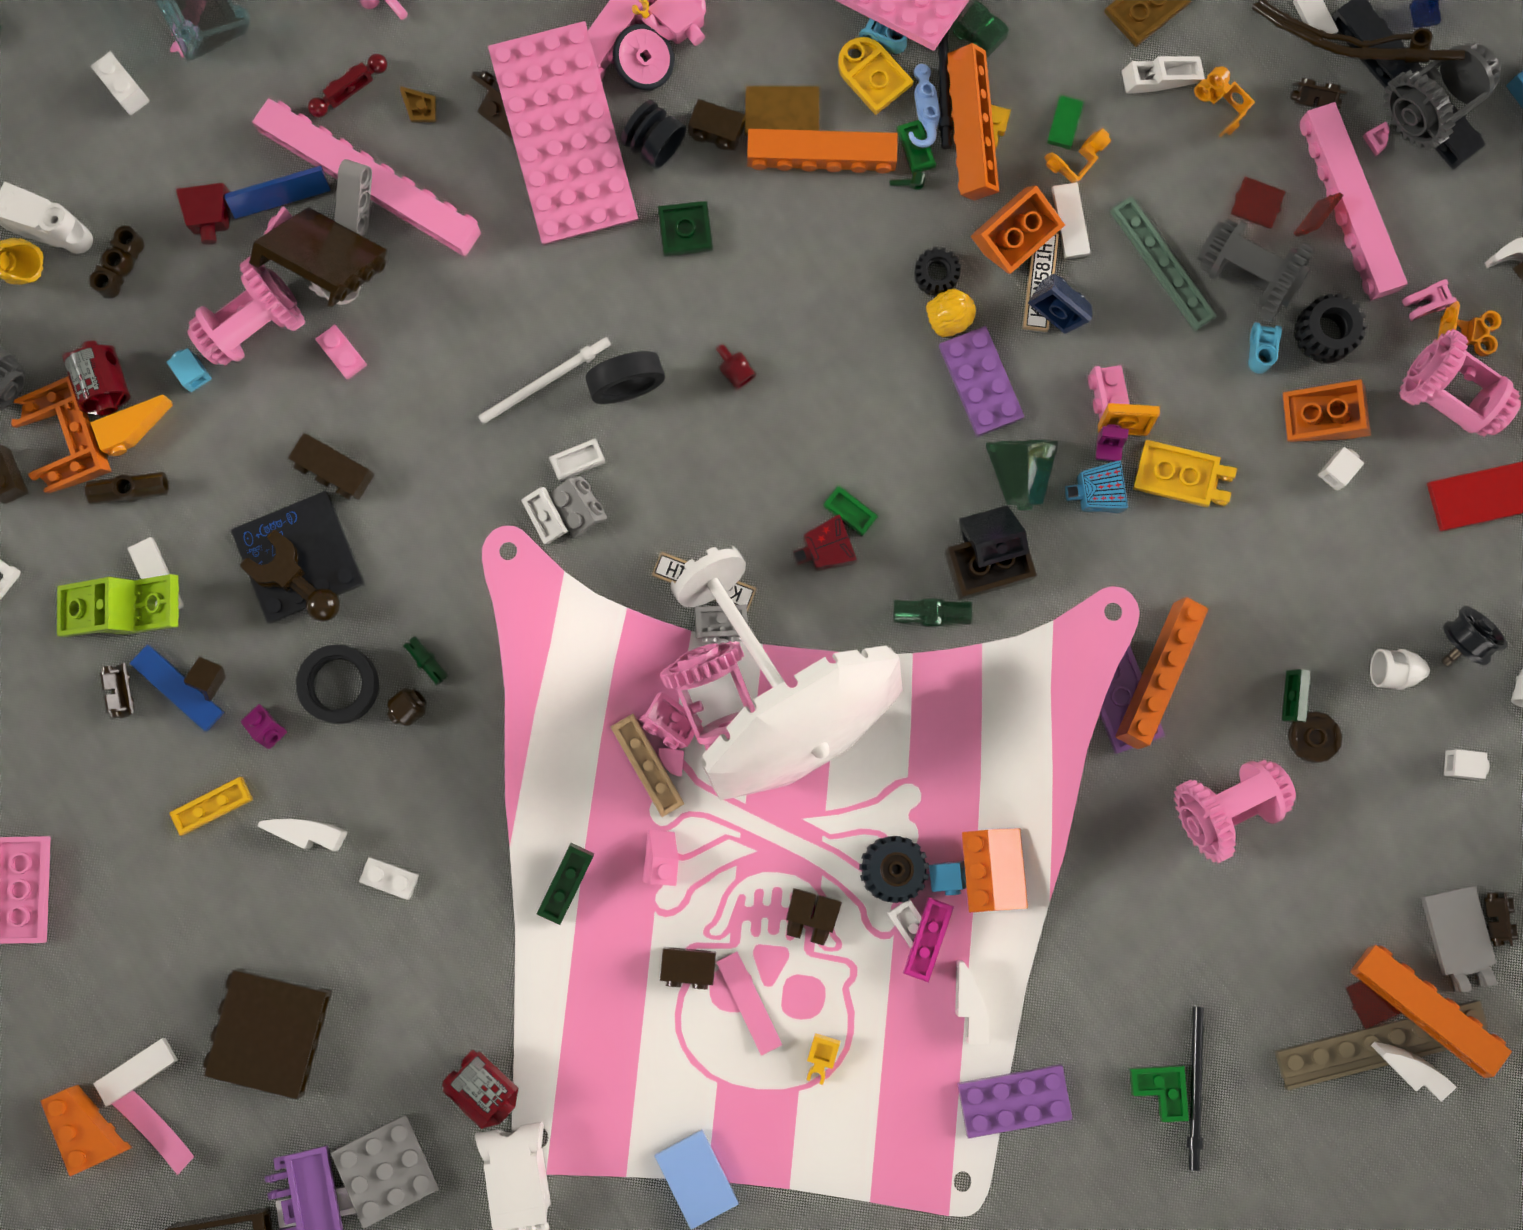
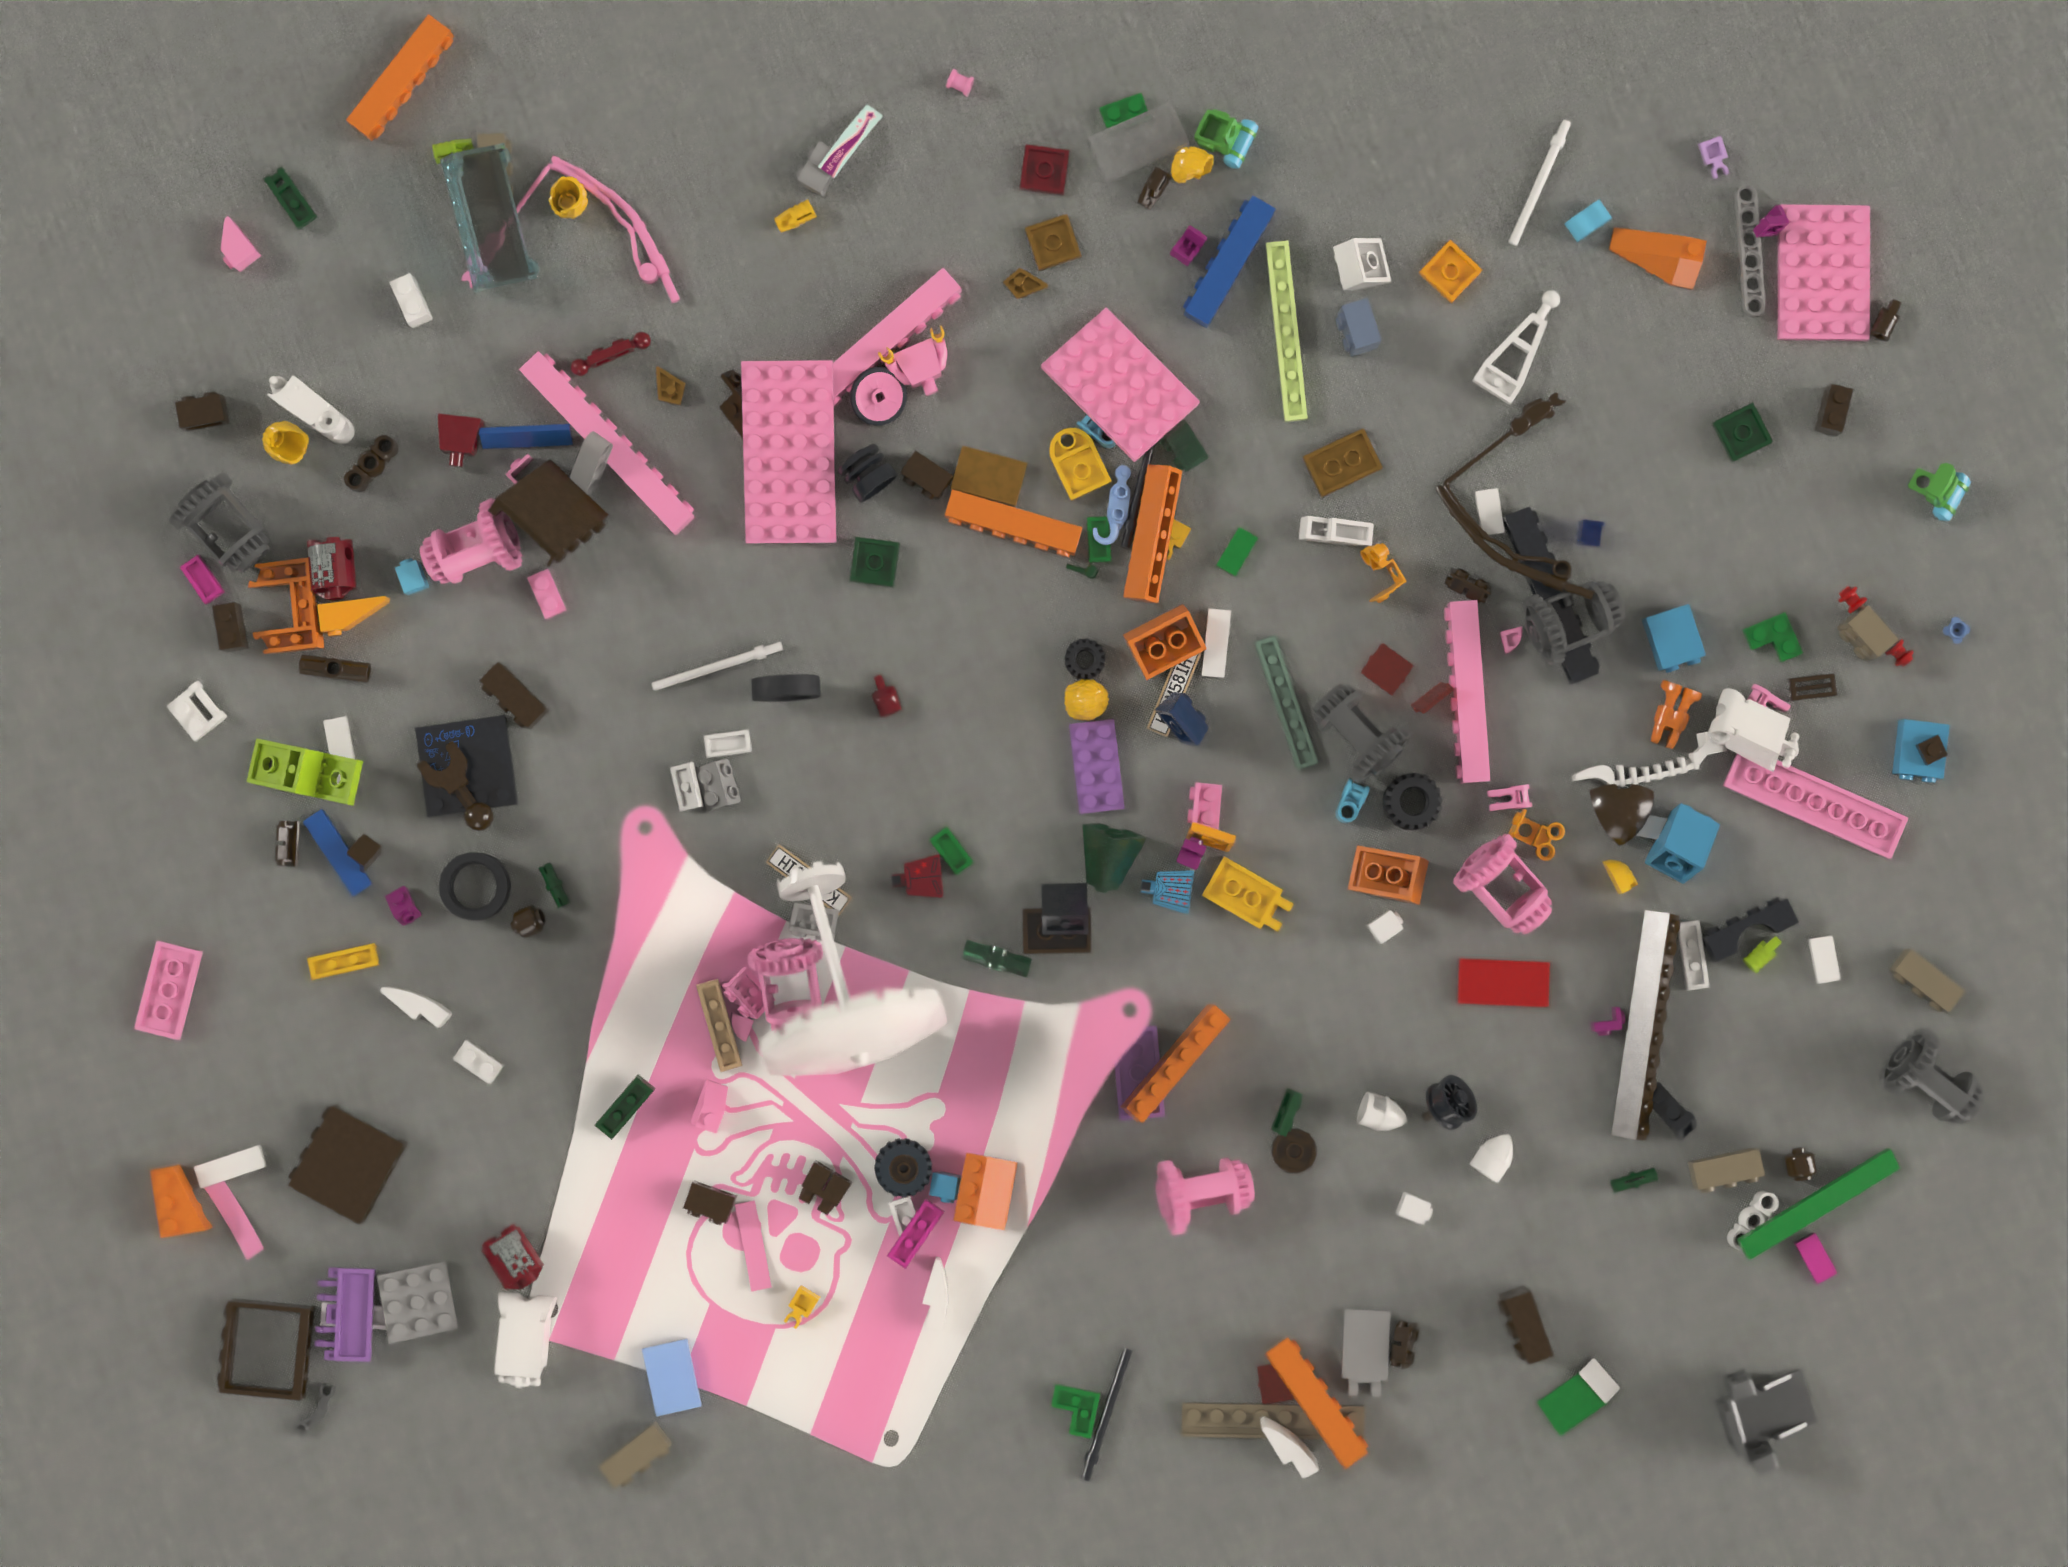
camera: 15 degrees right, 5 degrees up
(1014, 1101) = (952, 1384): medium lavender plate -> none
(1094, 143) = (1253, 581): light orange piece -> none

